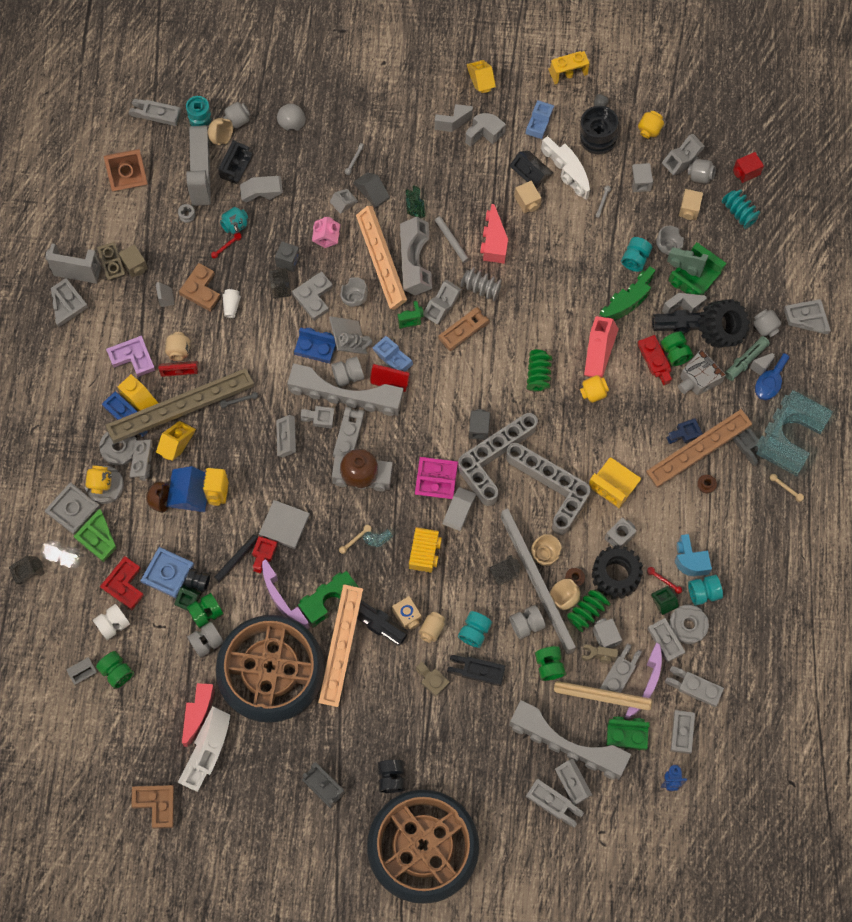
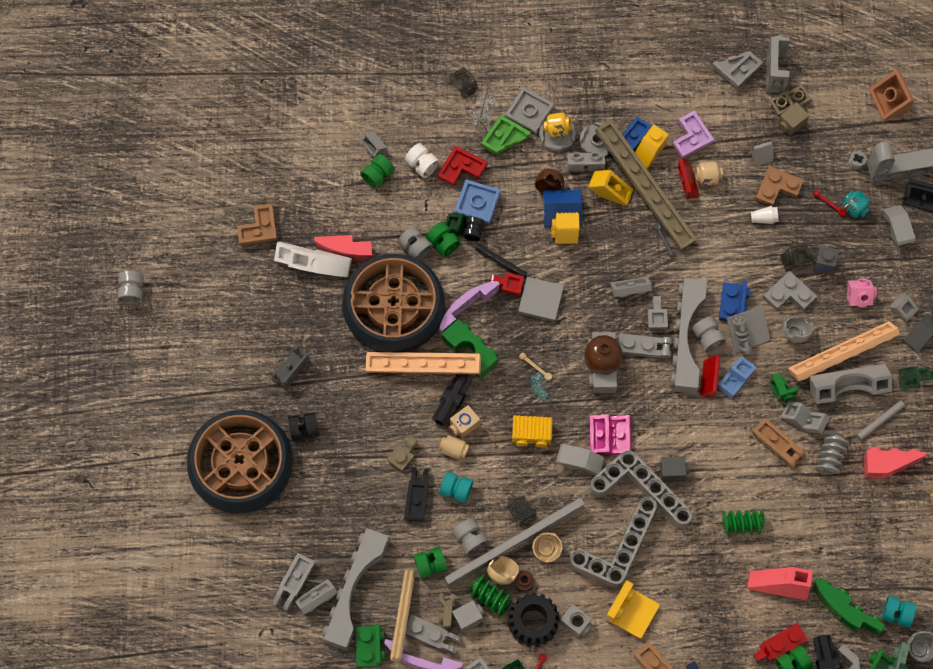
camera: 85 degrees right, 0 degrees up
(594, 388) = (733, 581): yellow head -> none

